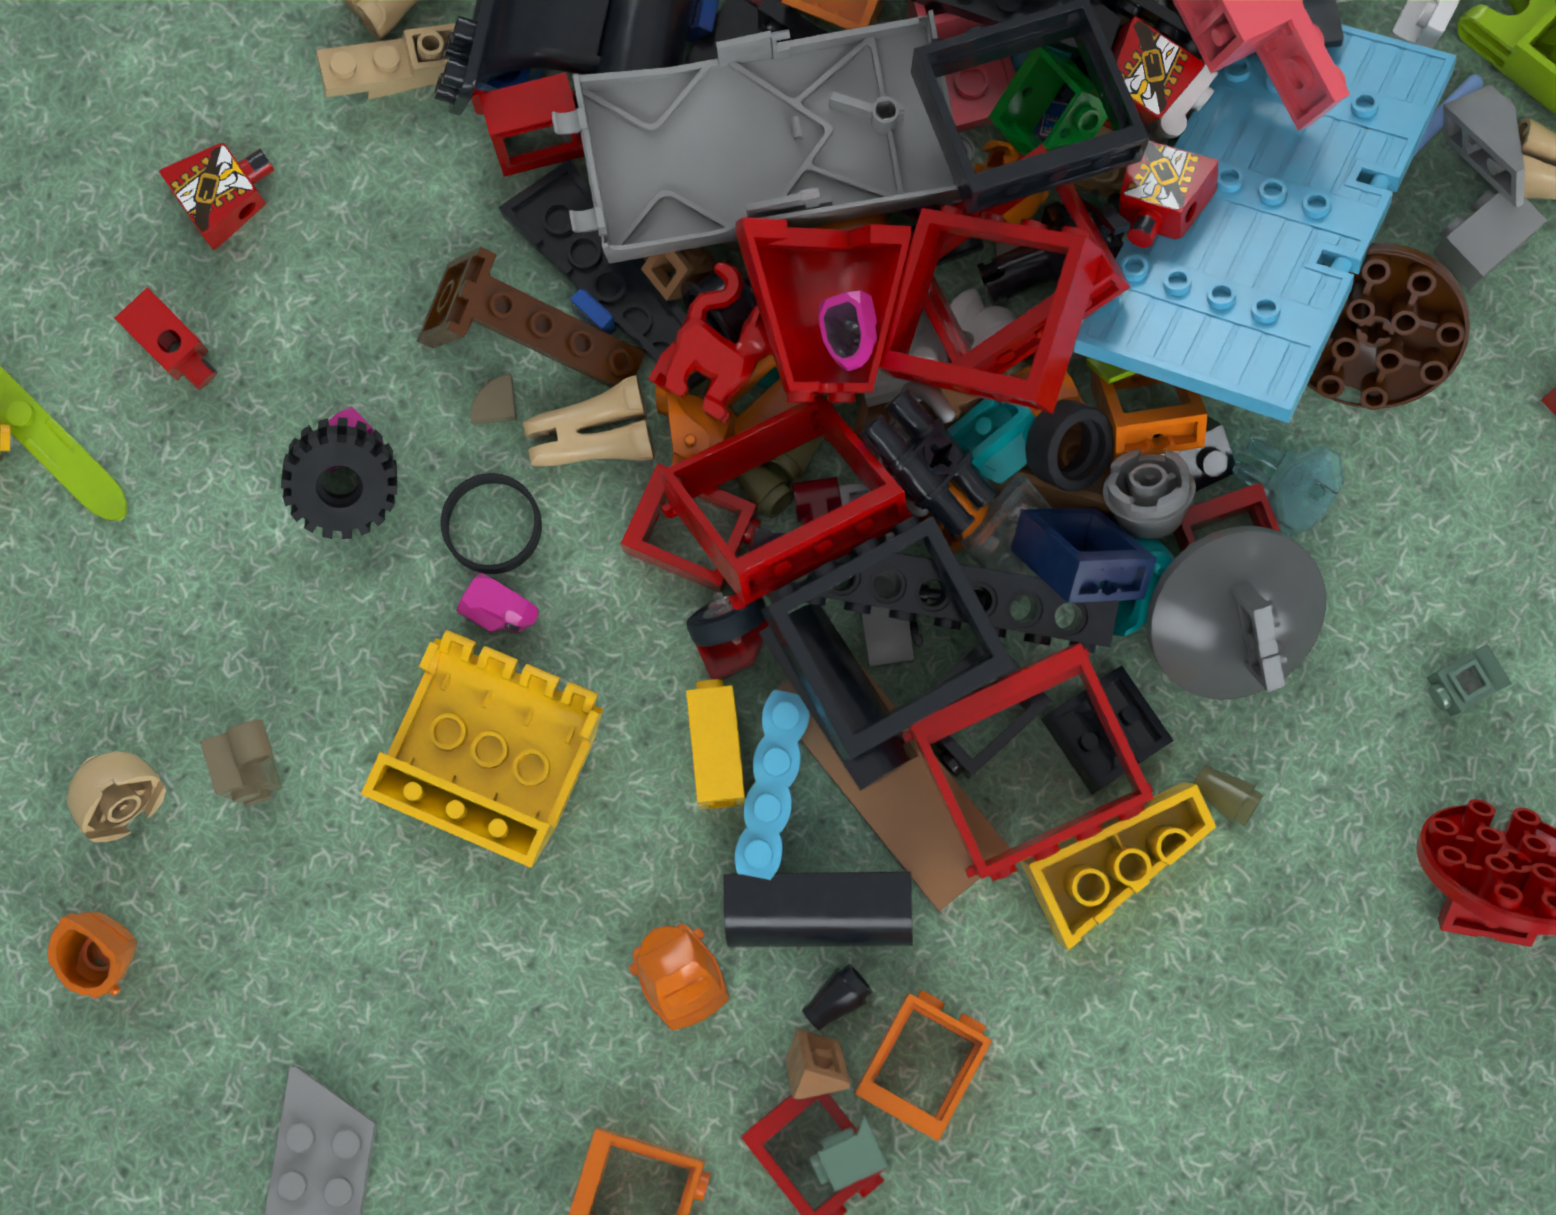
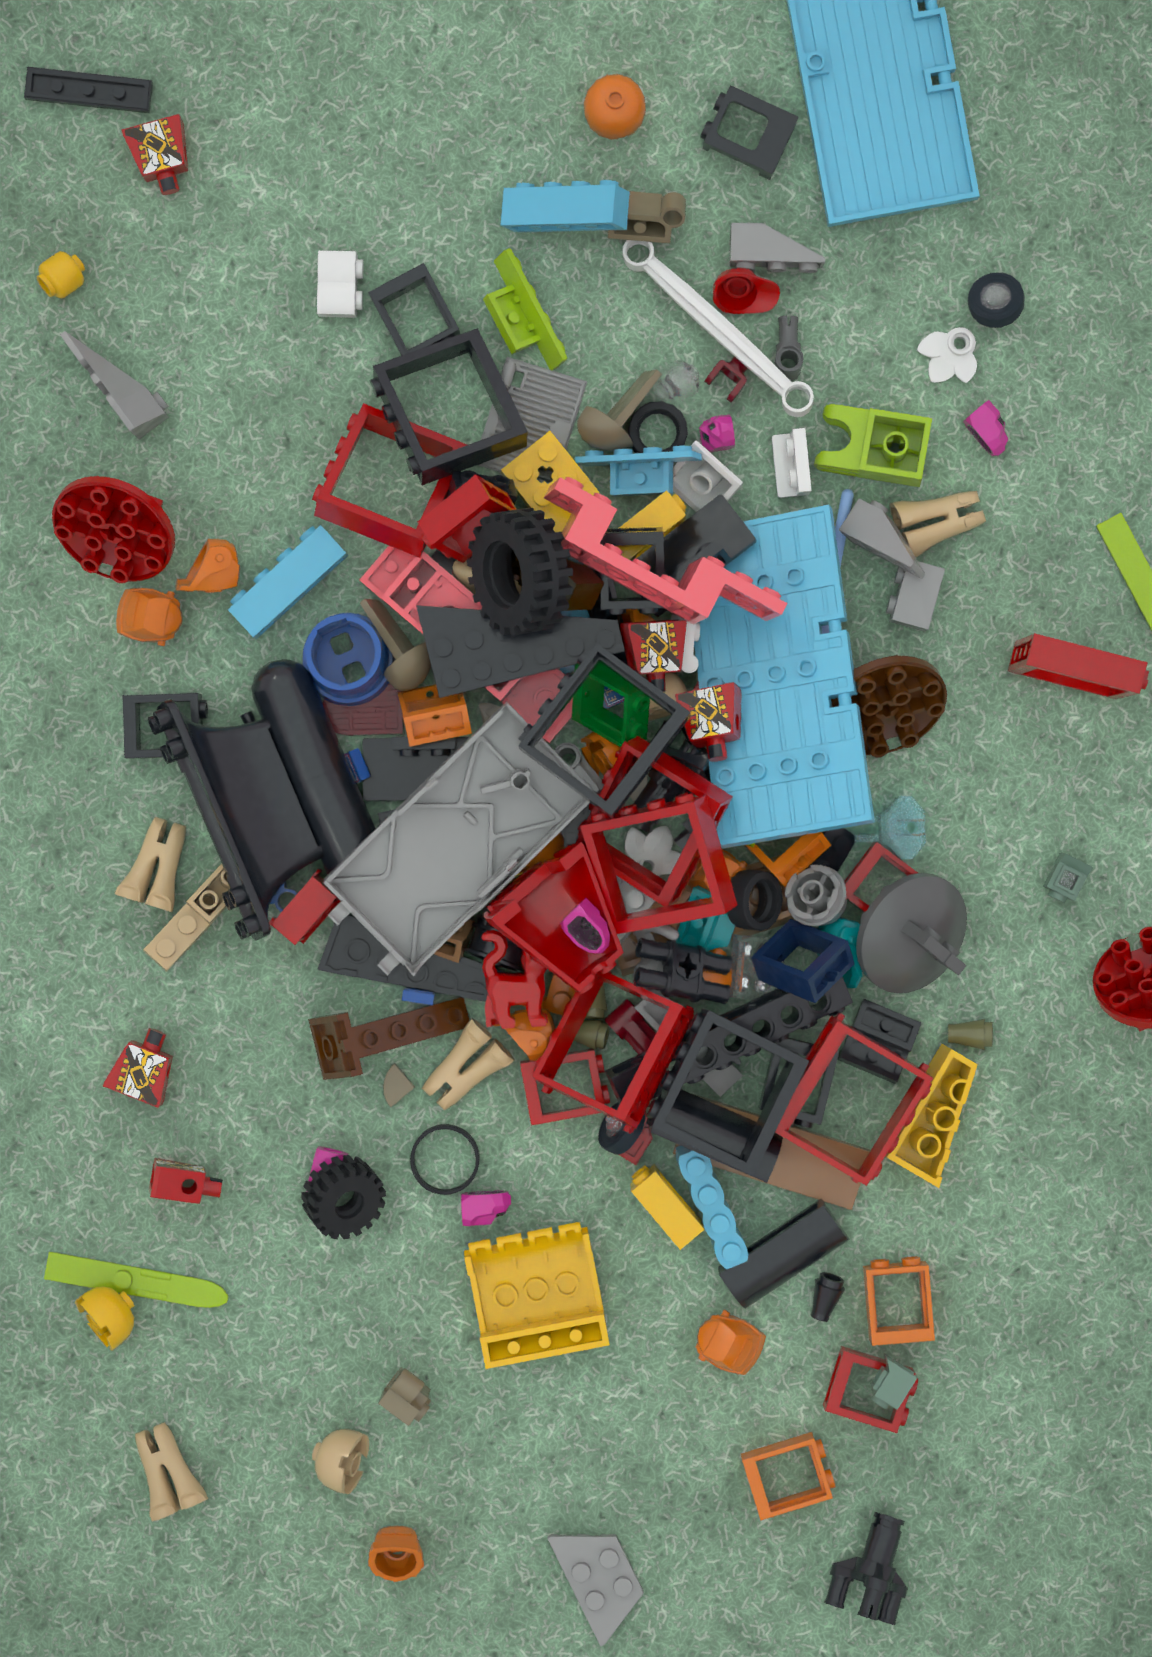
camera: 40 degrees left, 10 degrees up
(815, 1065) = (840, 1344): medium nougat slope -> none

